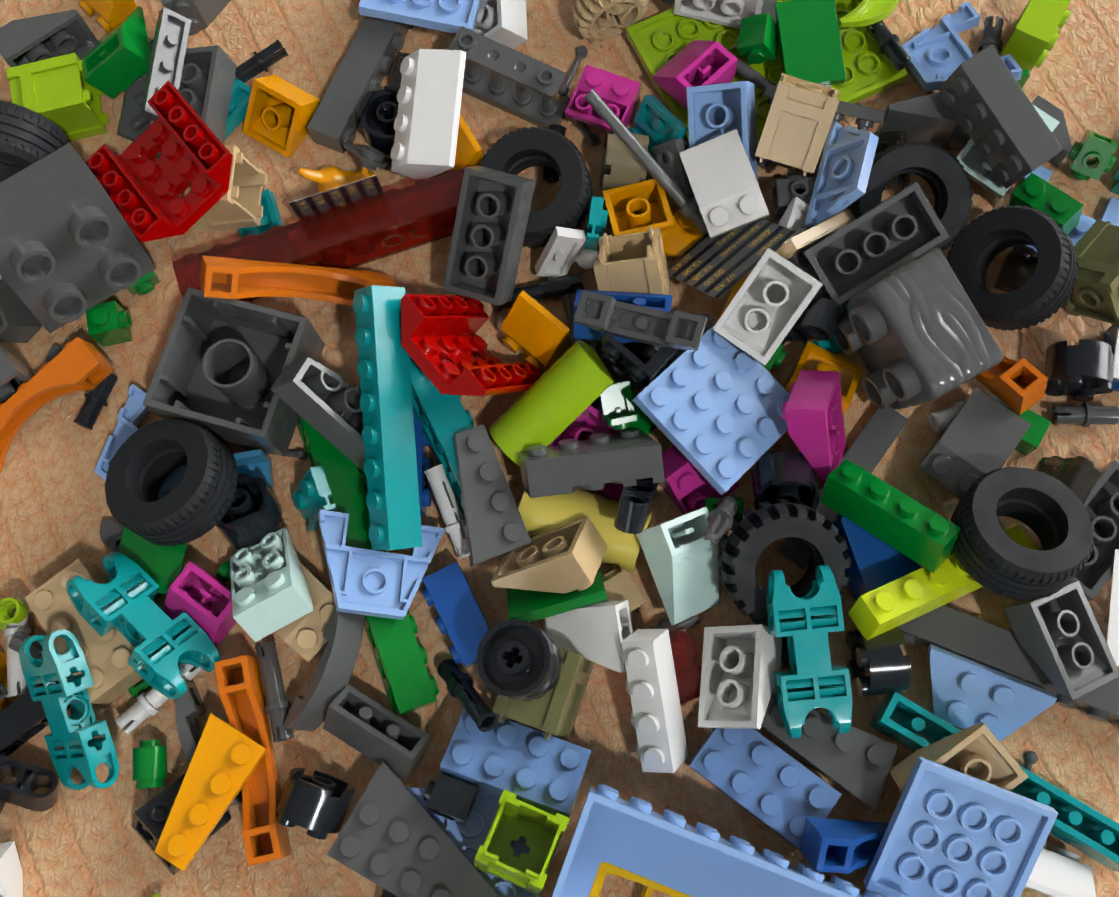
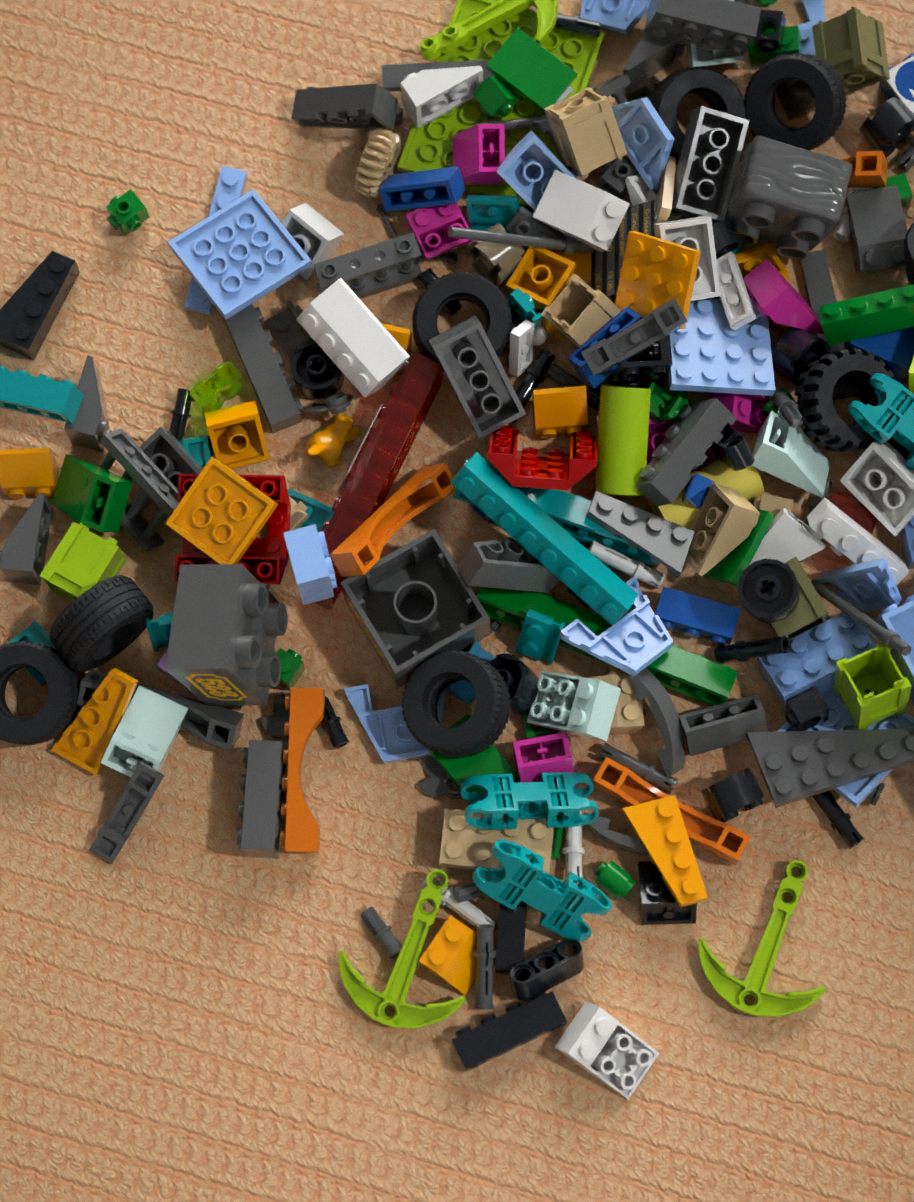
camera: 50 degrees left, 0 degrees up
(151, 137) = (221, 513): none -> light orange plate
(169, 243) = (311, 564): none -> light blue brick
(302, 64) = (222, 385): none -> clear neon green brick
(566, 509) = (696, 490): none -> blue slope
(570, 820) = (888, 637): none -> dark grey bar
(620, 56) = (422, 189): none -> blue brick
(623, 743) = (864, 585): none -> light blue wing
(726, 290) = (655, 274): none -> light orange plate
(780, 372) = (734, 292): none -> white tile
(1057, 172) = (770, 20): none -> black brick

